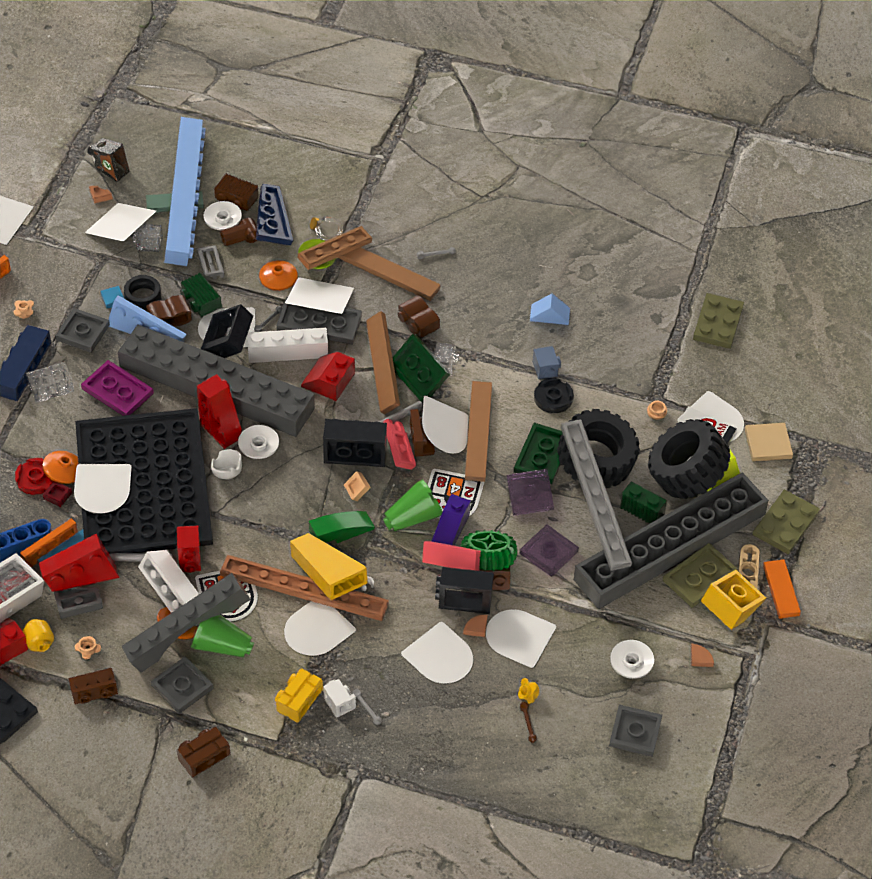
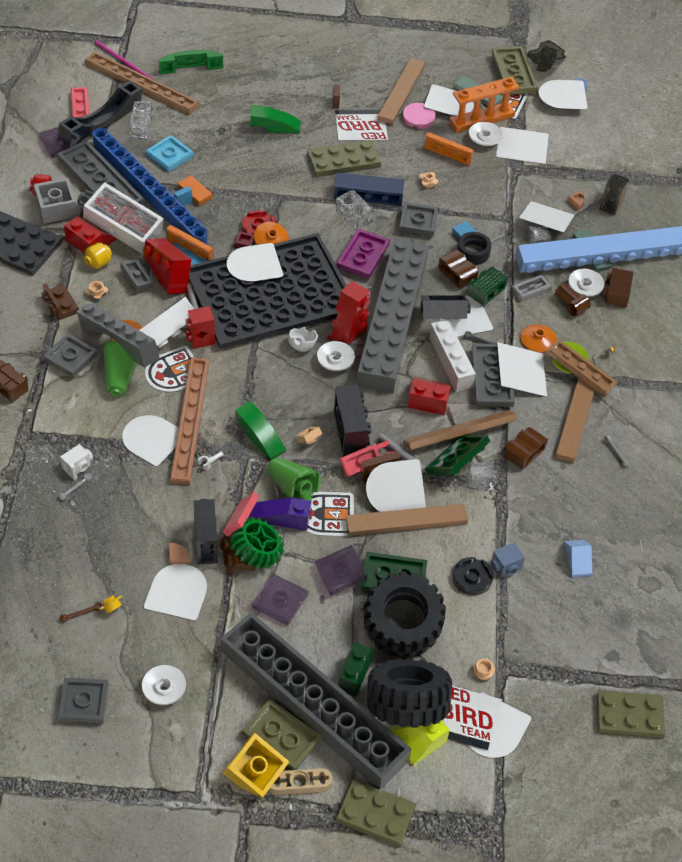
camera: 75 degrees right, 0 degrees up
(126, 316) = (433, 258): light blue wing -> none
(272, 217) = (599, 317): dark blue wing -> none
(298, 695) = (71, 432): yellow brick -> none
(327, 566) = (206, 425): yellow slope -> none
(440, 655) = (142, 533): white sticker -> none
(596, 495) = (331, 610): light grey tile -> none
(701, 656) = (184, 748): nougat tile -> none
(768, 442) = (478, 783): tan tile -> none
(781, 589) = (286, 817): orange tile -> none

